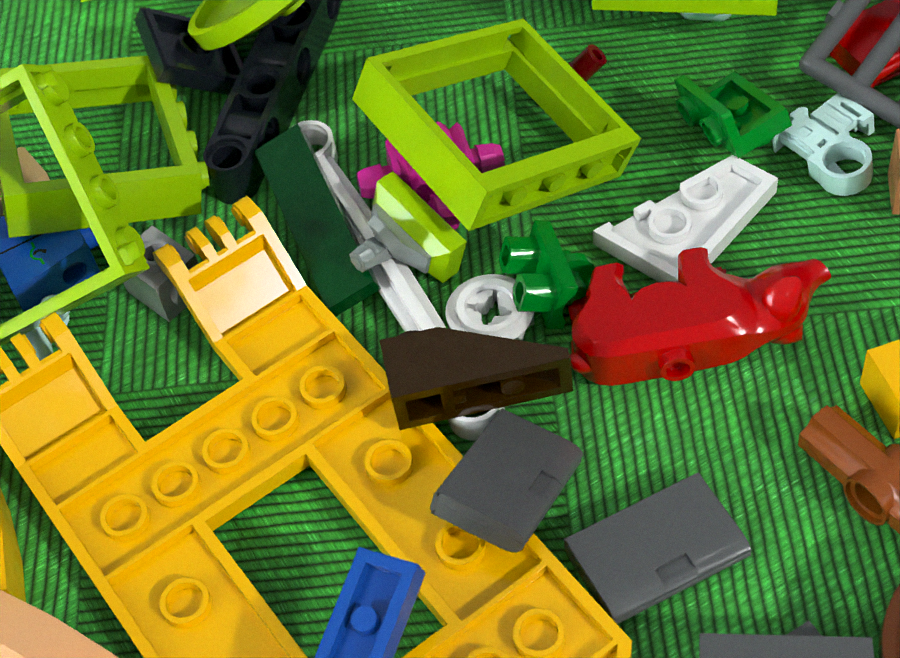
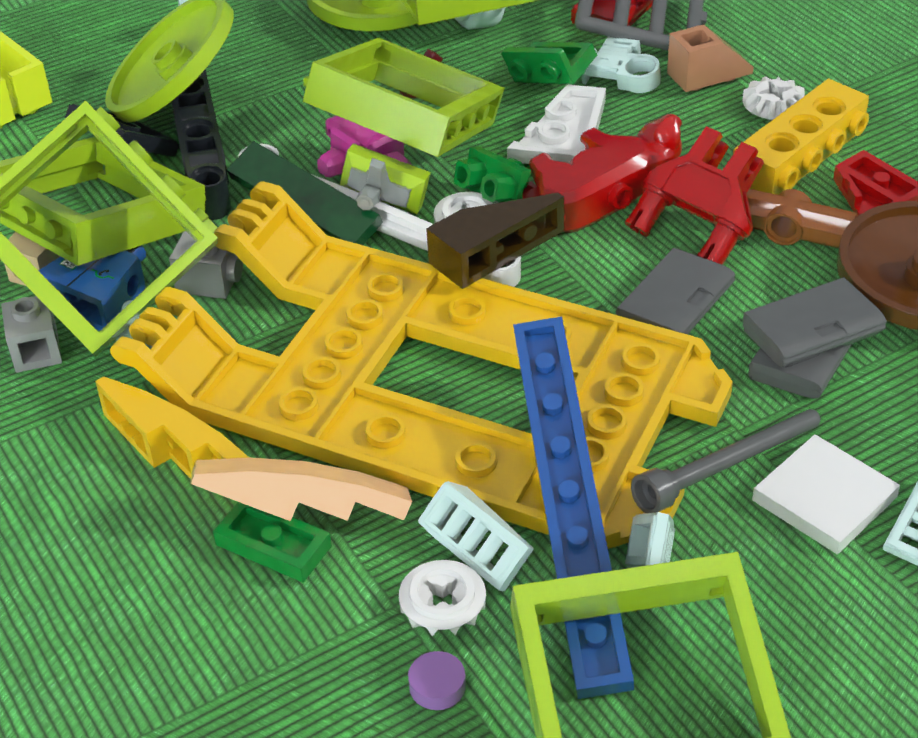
camera: 35 degrees left, 10 degrees down
(507, 481) = (561, 286): dark grey piece -> none
(784, 418) = (703, 190): none -> red connector

